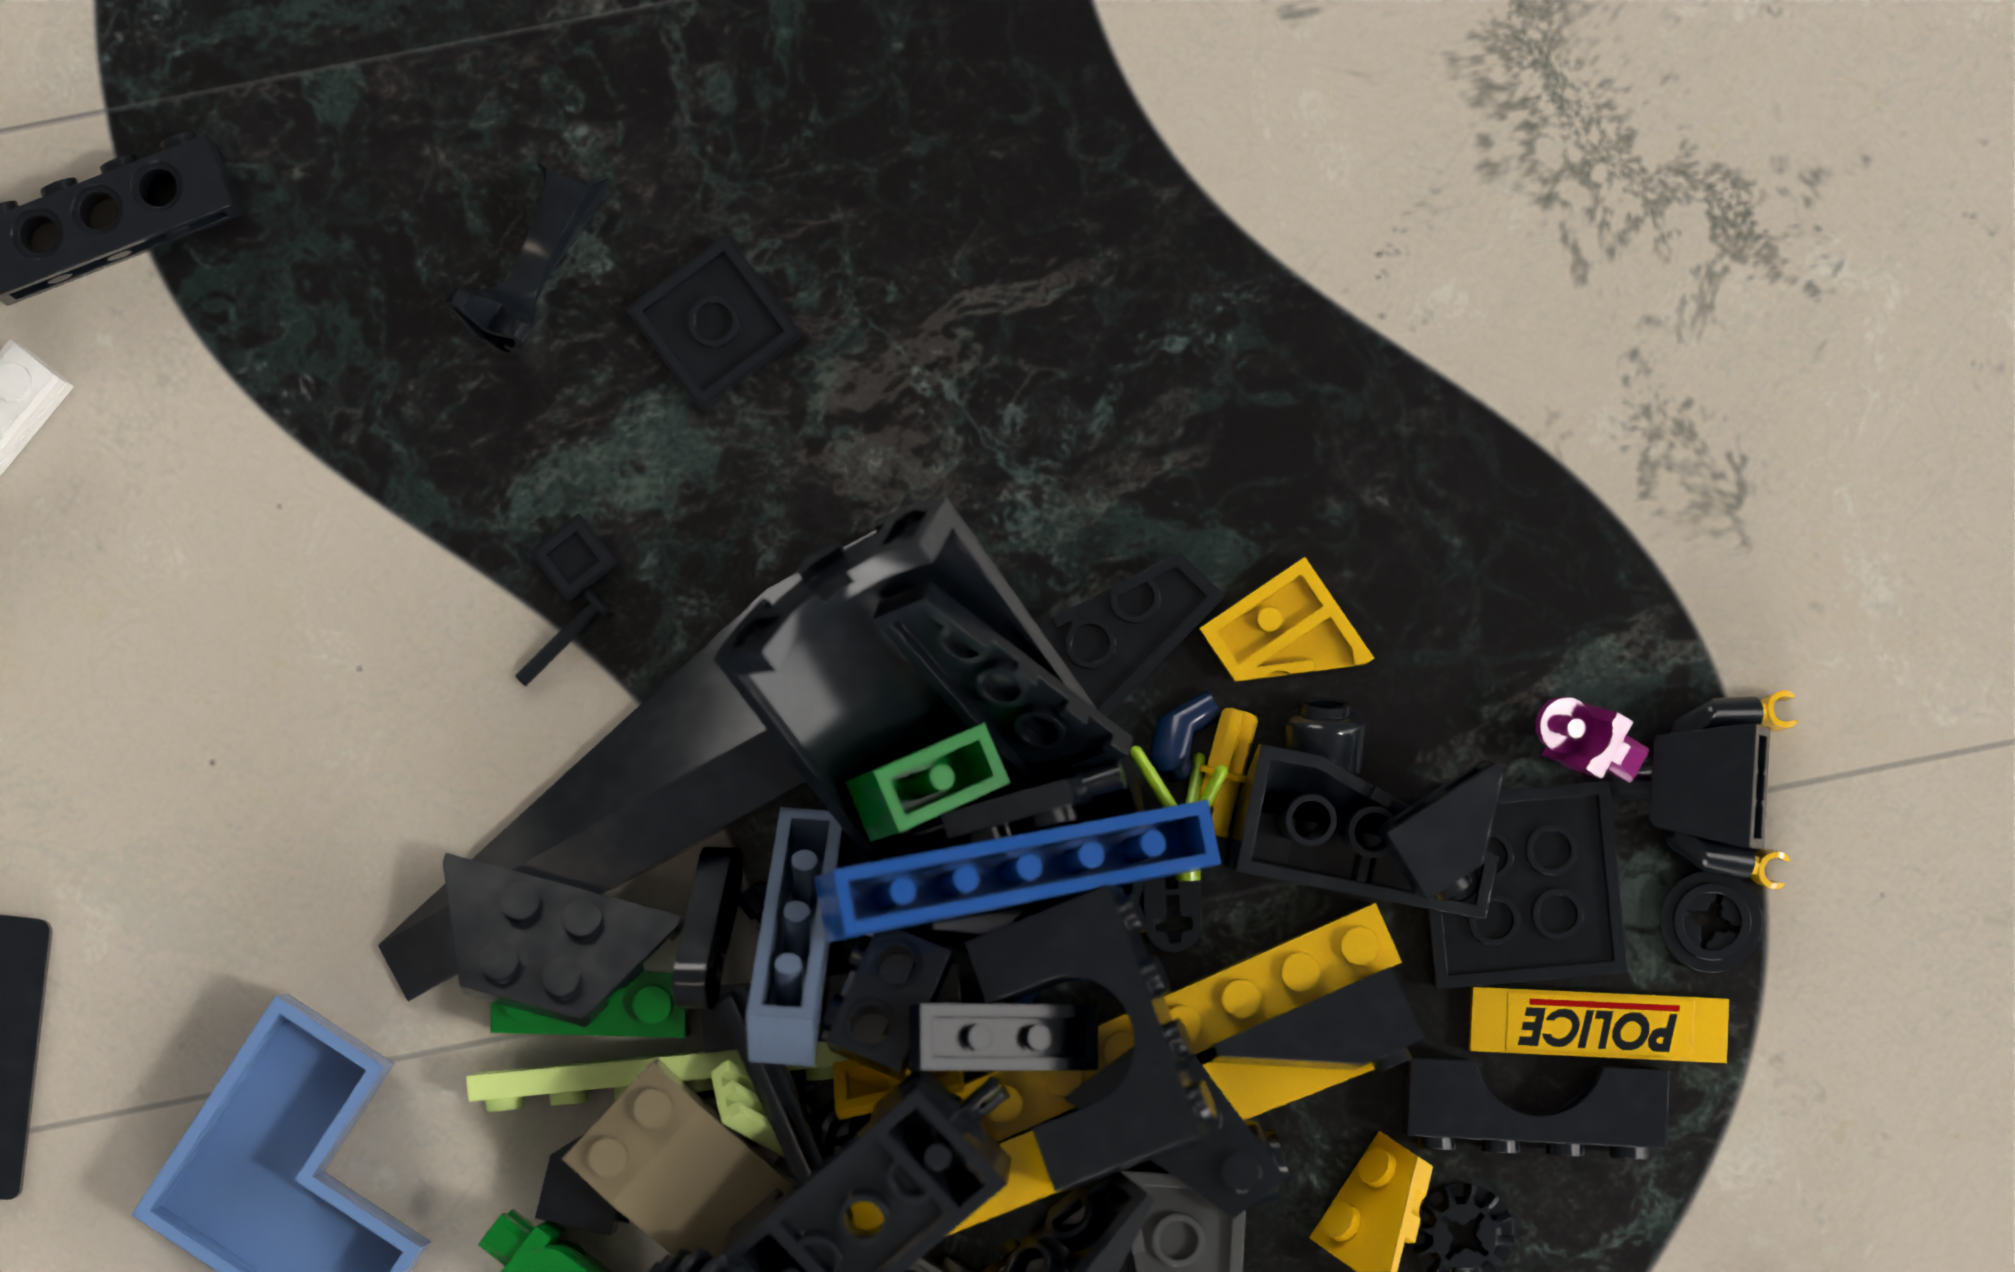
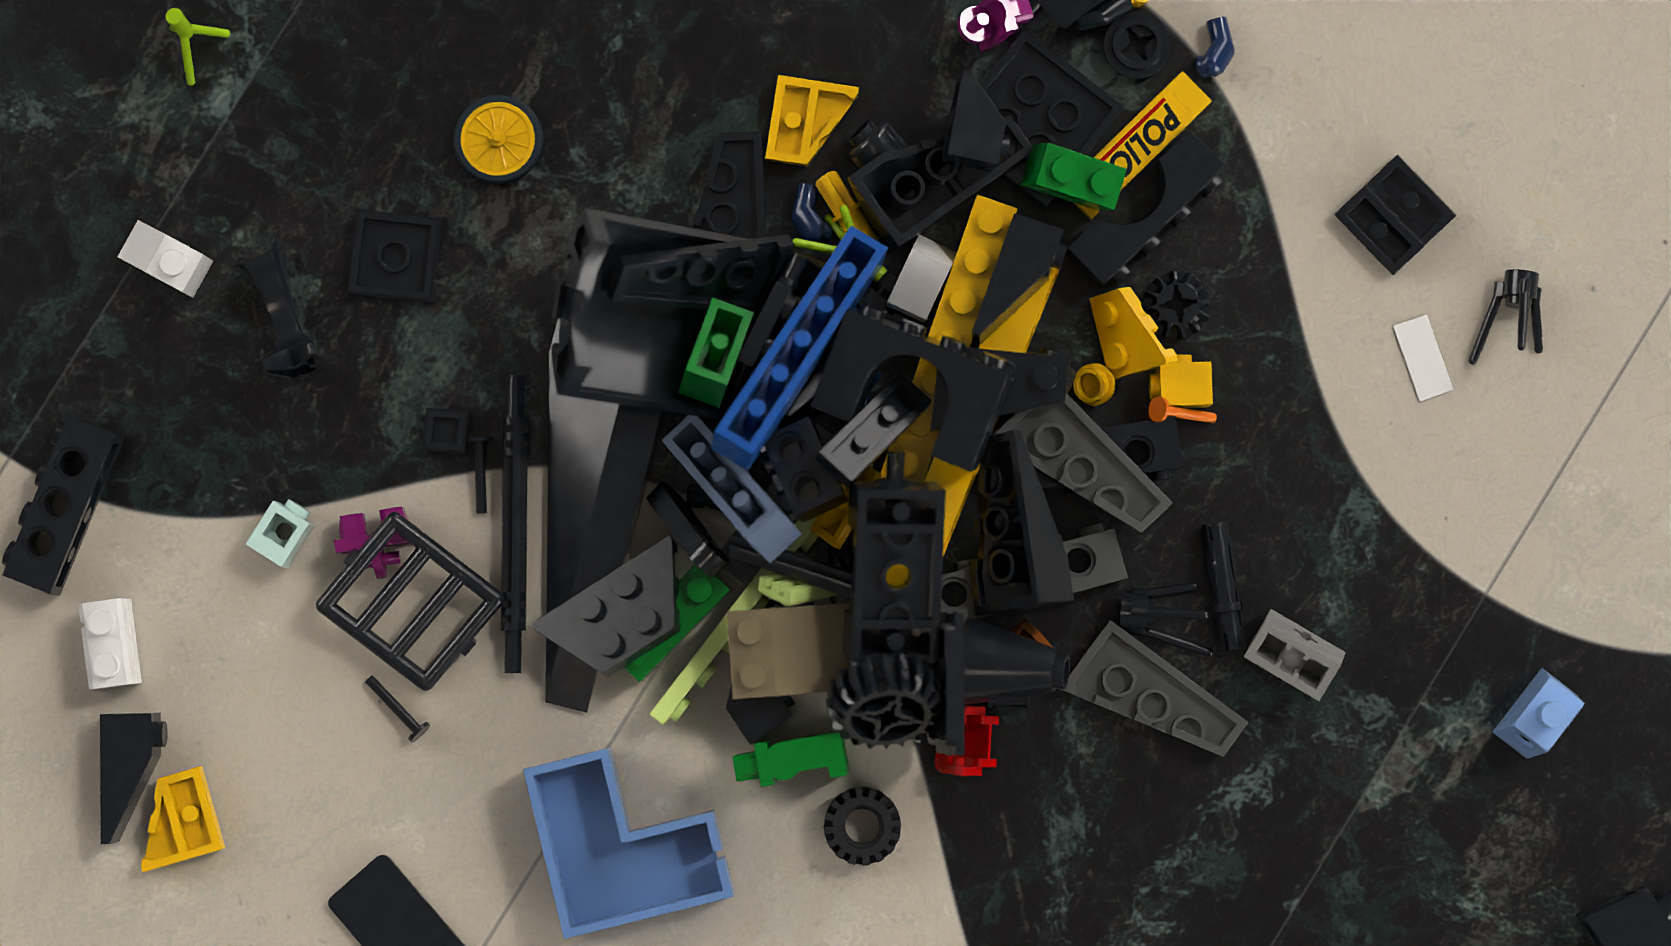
camera: 45 degrees left, 0 degrees up
(220, 790) = (416, 729): none -> black pin
(272, 478) = (266, 535): none -> light aqua brick
(363, 571) = (354, 534): none -> magenta hips
(420, 661) = (395, 653): none -> black bar
(477, 76) = (165, 258): none -> white slope
(540, 729) = (514, 523): none -> black axle
(947, 315) = (498, 139): none -> yellow wheel
(1227, 926) = (921, 278): none -> white slope
(1288, 1225) = (1094, 384): none -> yellow plate
(1495, 992) = (1073, 176): none -> green brick
(1789, 1020) = (1220, 51): none -> dark blue arm

